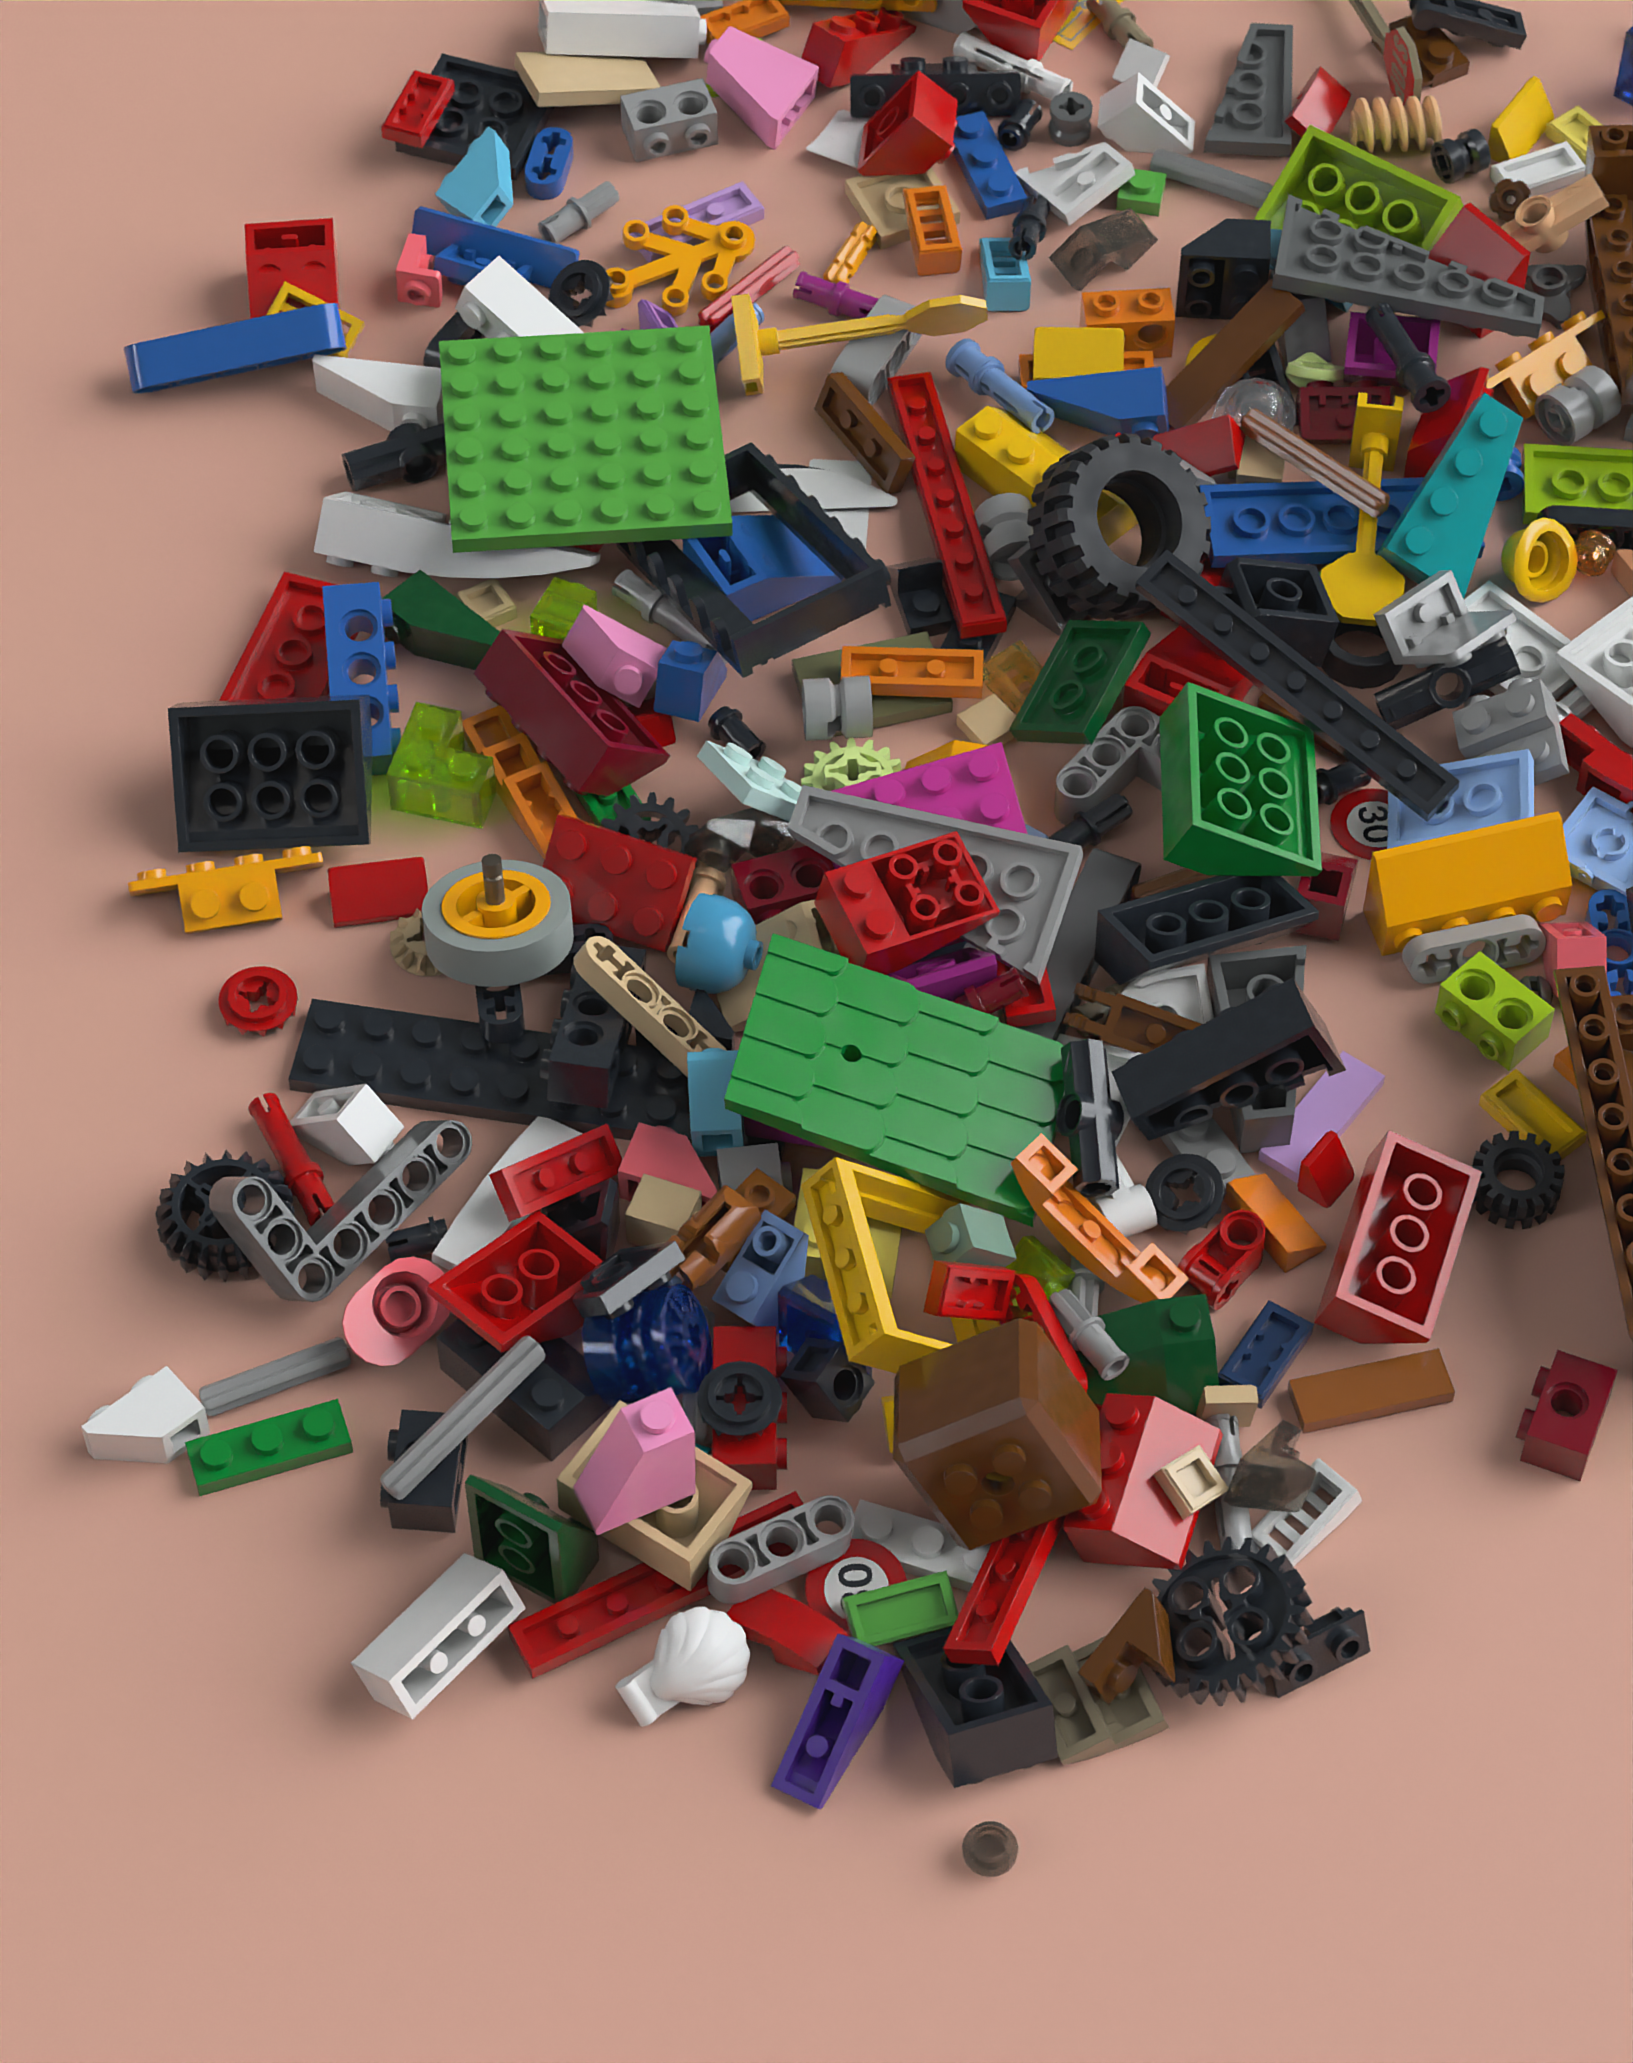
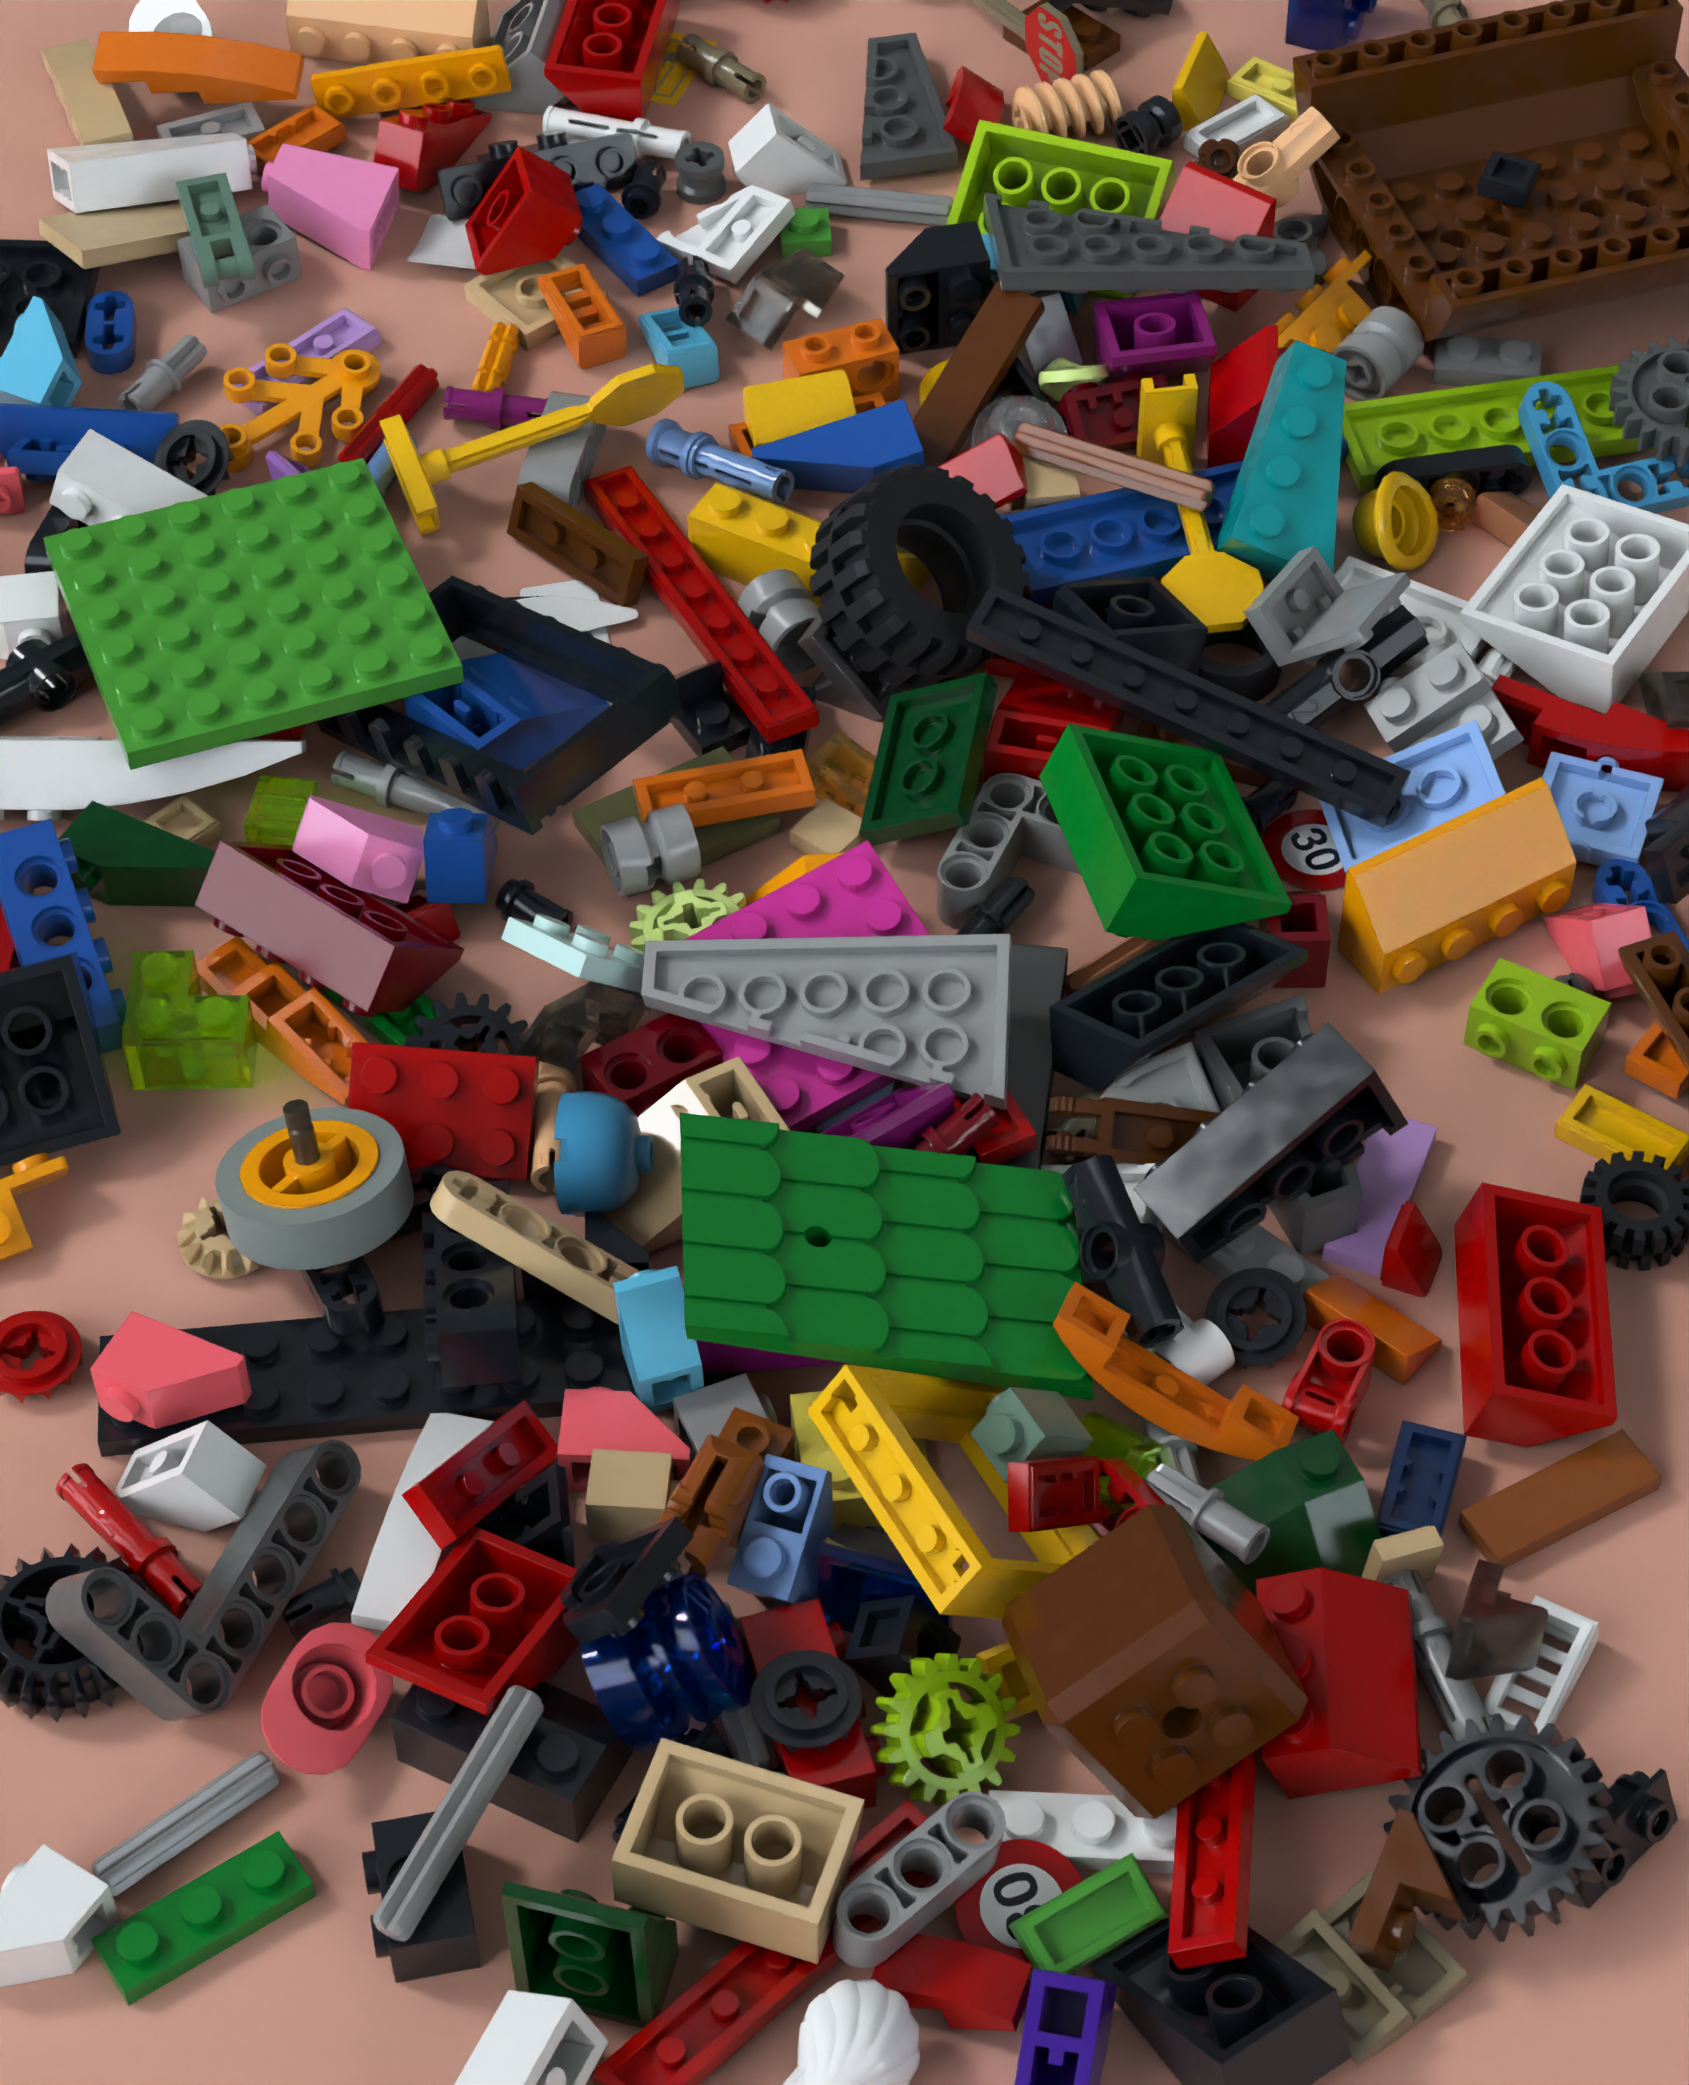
camera: 15 degrees left, 5 degrees down
(347, 1041) = (166, 1375): none -> coral slope
(377, 891) = (146, 1188): red slope -> none
(639, 1463) = (724, 1810): bright pink slope -> none
(651, 94) = (215, 229): none -> sand green plate
(859, 1445) = (936, 1724): none -> lime gear
(904, 903) = (816, 1047): red slope -> none
(1142, 59) = (755, 95): white tile -> none
(1191, 1482) = (1401, 1663): tan tile -> none
(1413, 368) = (1193, 341): black pin -> none
(1456, 939) = (1450, 973): light grey beam -> none

